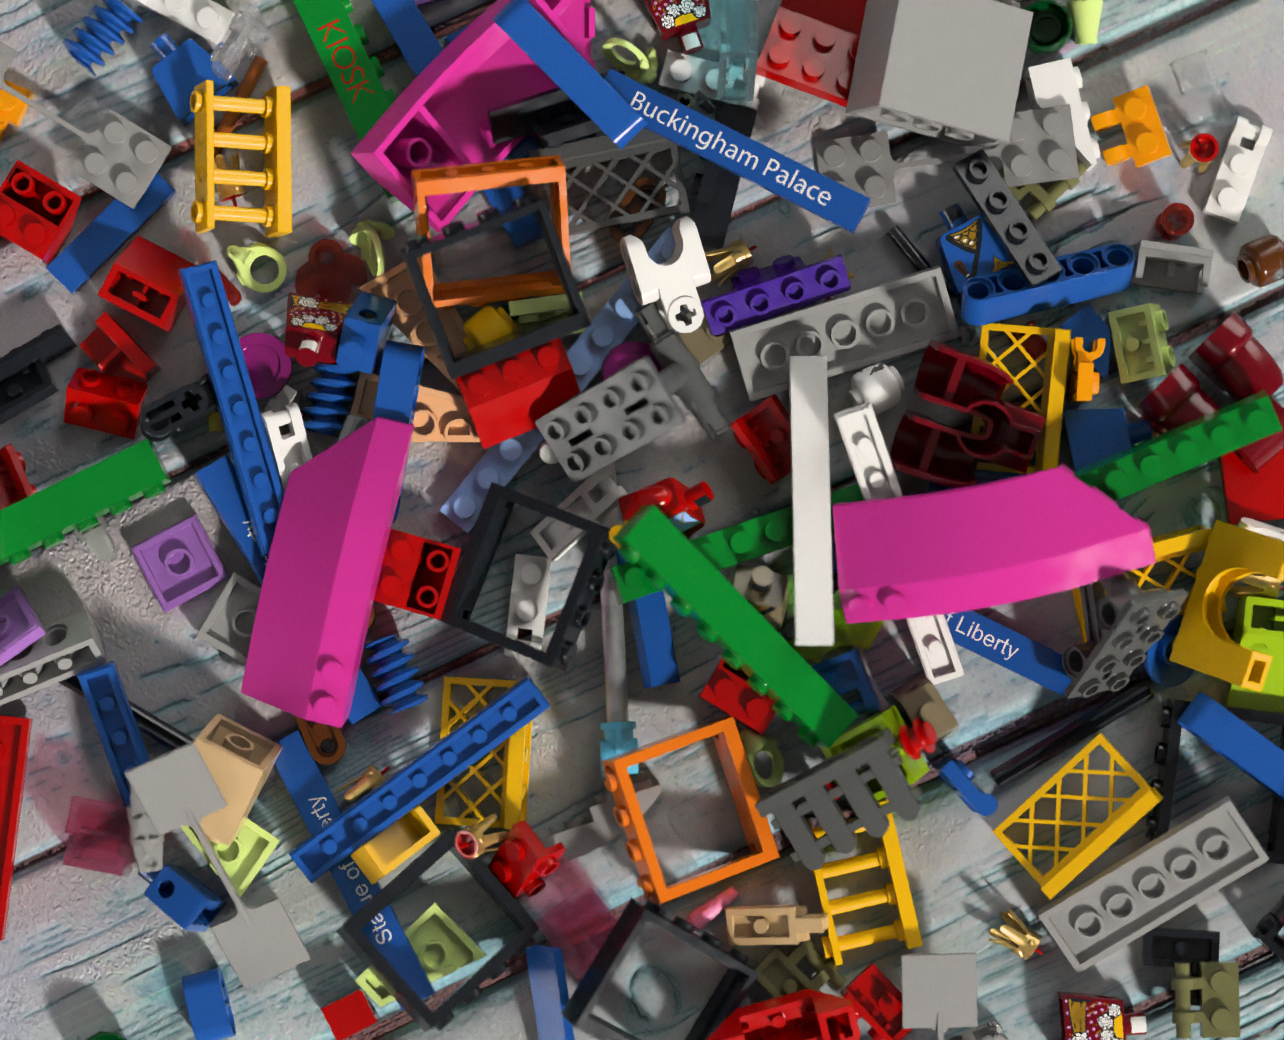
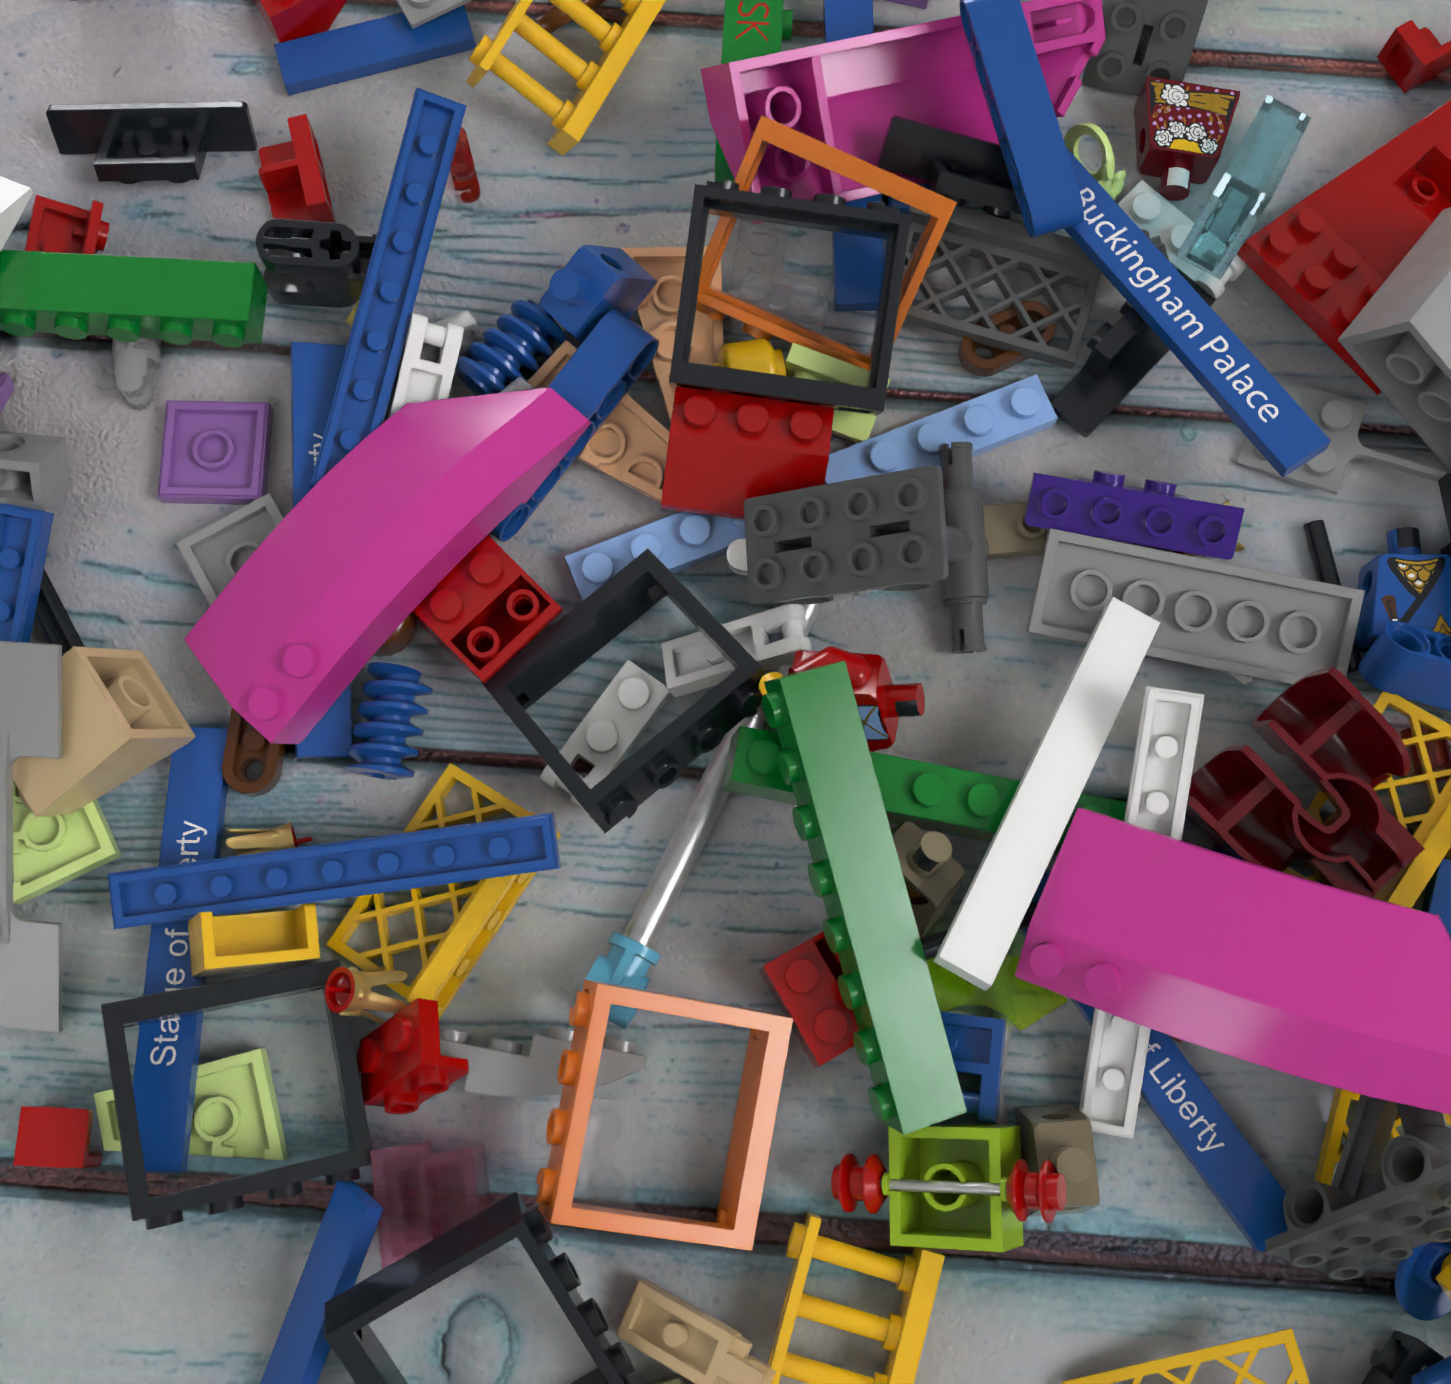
camera: 30 degrees right, 10 degrees down
(104, 402) = (231, 212): red bracket -> none
(147, 283) = (366, 113): red slope -> none
(227, 191) = (536, 63): pearl gold piece -> none
(243, 258) = (509, 145): yellowish green piece -> none
(266, 364) = (455, 277): magenta piece -> none
(314, 328) = (530, 253): dark red torso -> none
(331, 279) = (590, 224): clear red plate -> none
(368, 239) = (662, 203): yellowish green piece -> none
(653, 639) = (743, 861): blue tile -> none
(673, 281) = (1006, 431): white piece -> none
(707, 912) = (614, 1270): bright pink animal -> none
(736, 257) = (1103, 451): pearl gold piece -> none
(755, 743) = (803, 1074): yellowish green piece -> none
(767, 438) = (1028, 688): red bracket -> none
(851, 783) = (910, 1207): dark grey fence -> none
(877, 385) = (1221, 701): white head -> none
(959, 779) = (1058, 1287): blue plate -> none
(1071, 734) = (1240, 1305): black axle -> none

